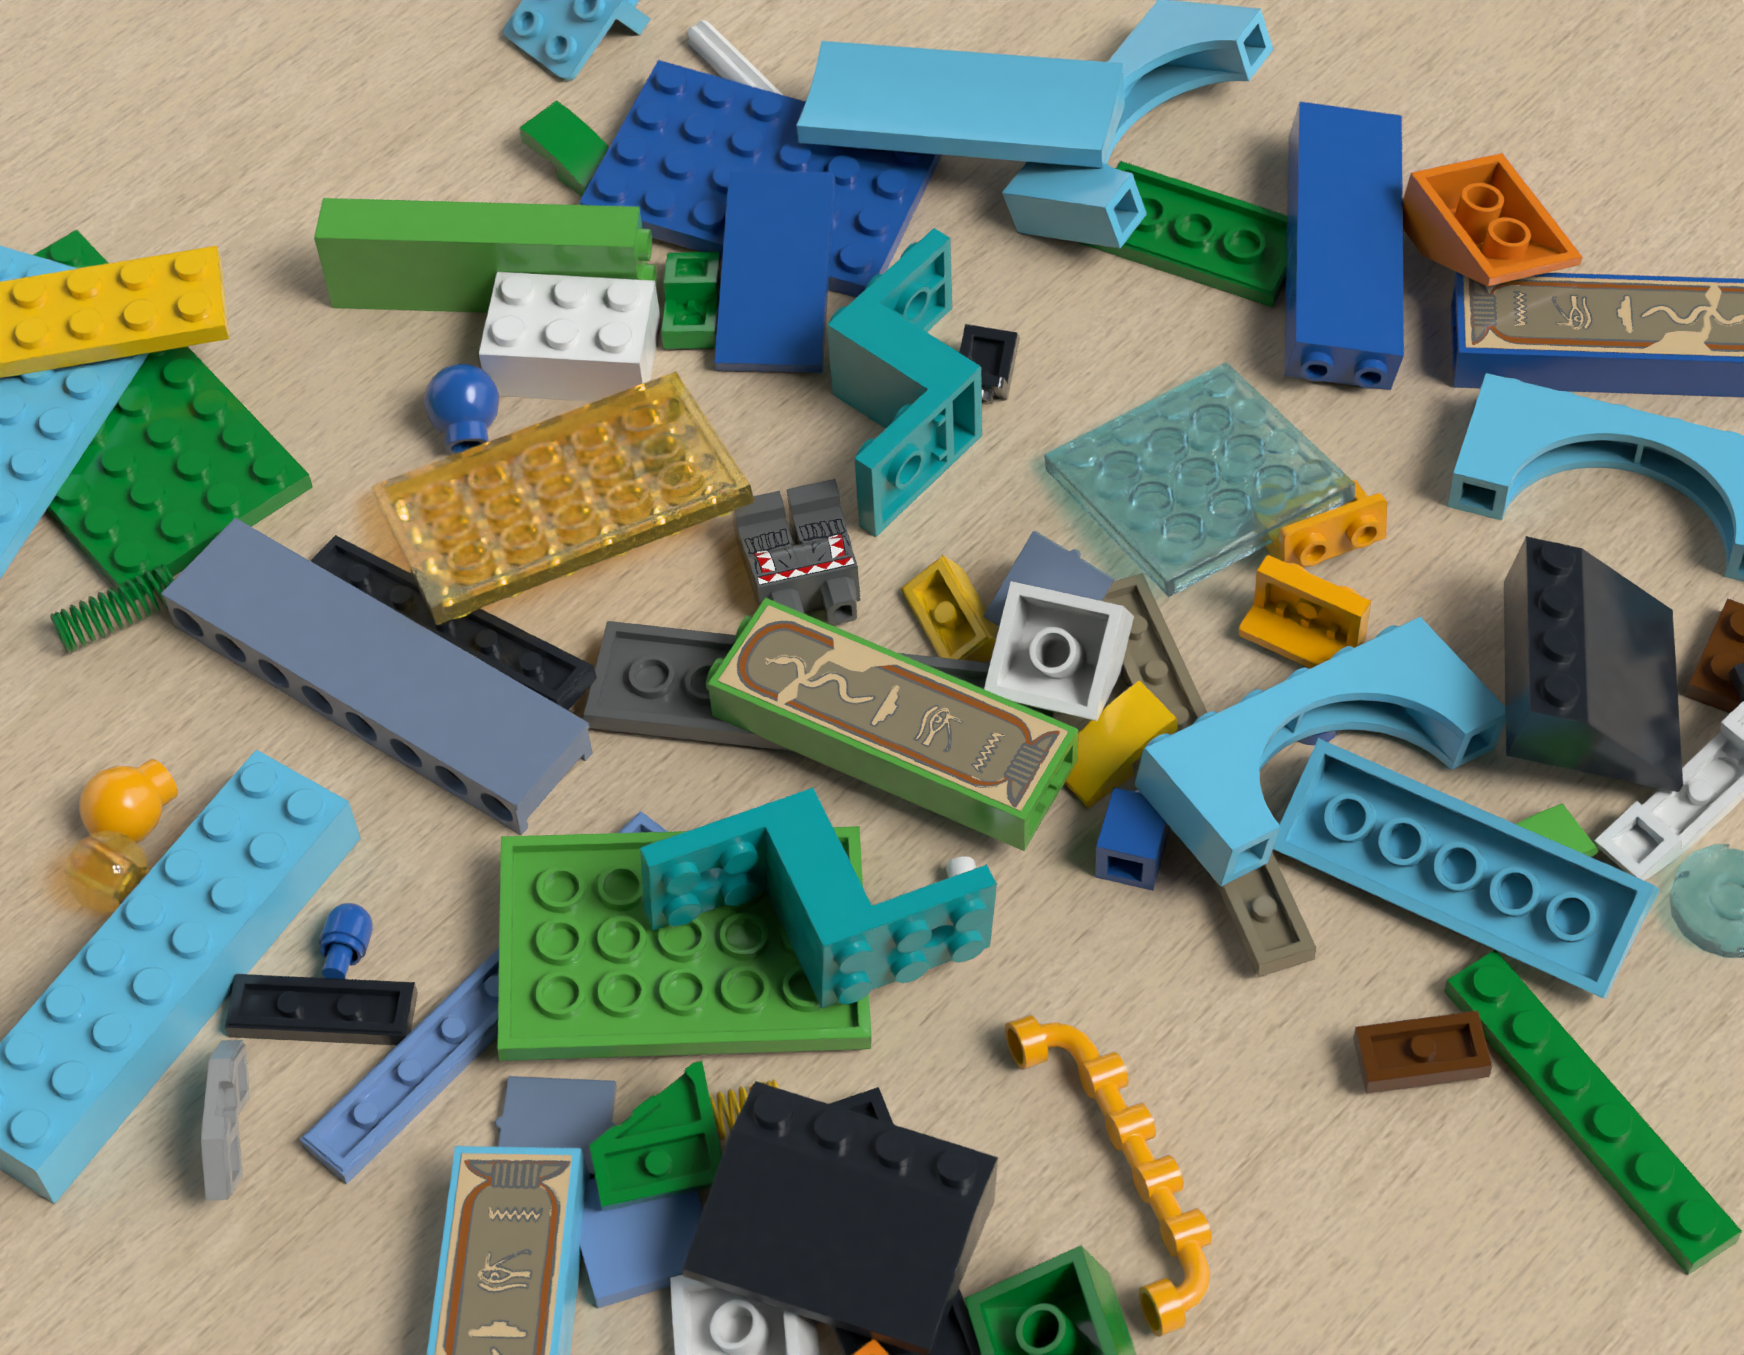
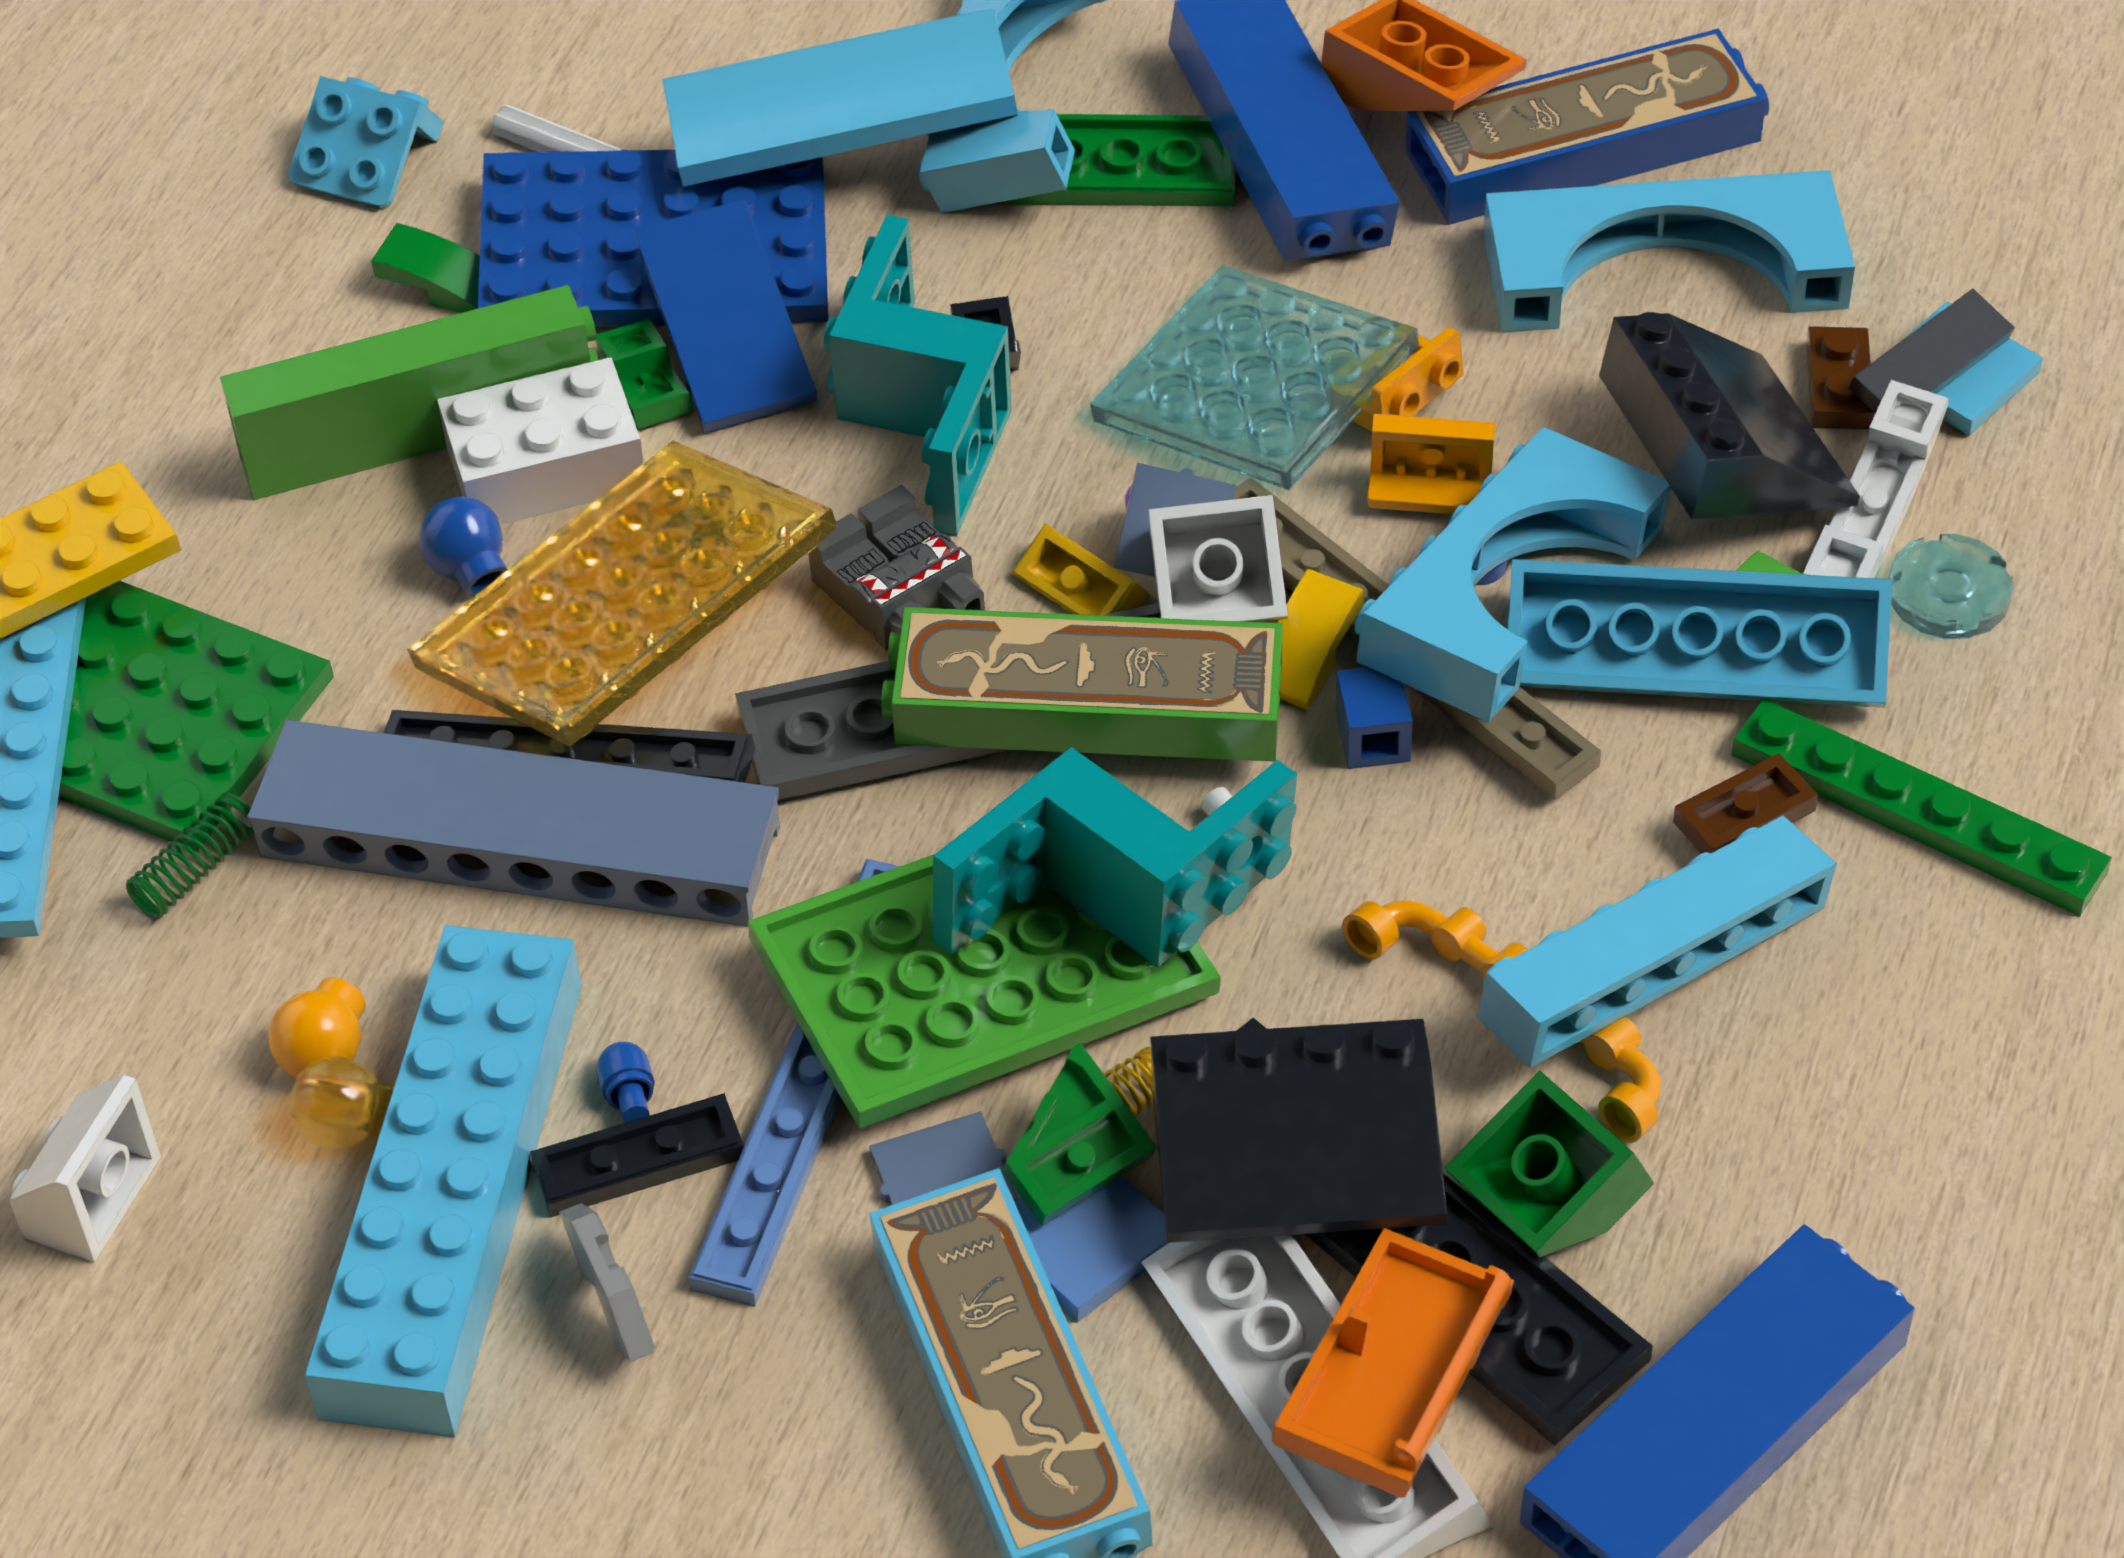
camera: 25 degrees left, 5 degrees down
(1264, 1153) = (1654, 940): none -> medium azure brick

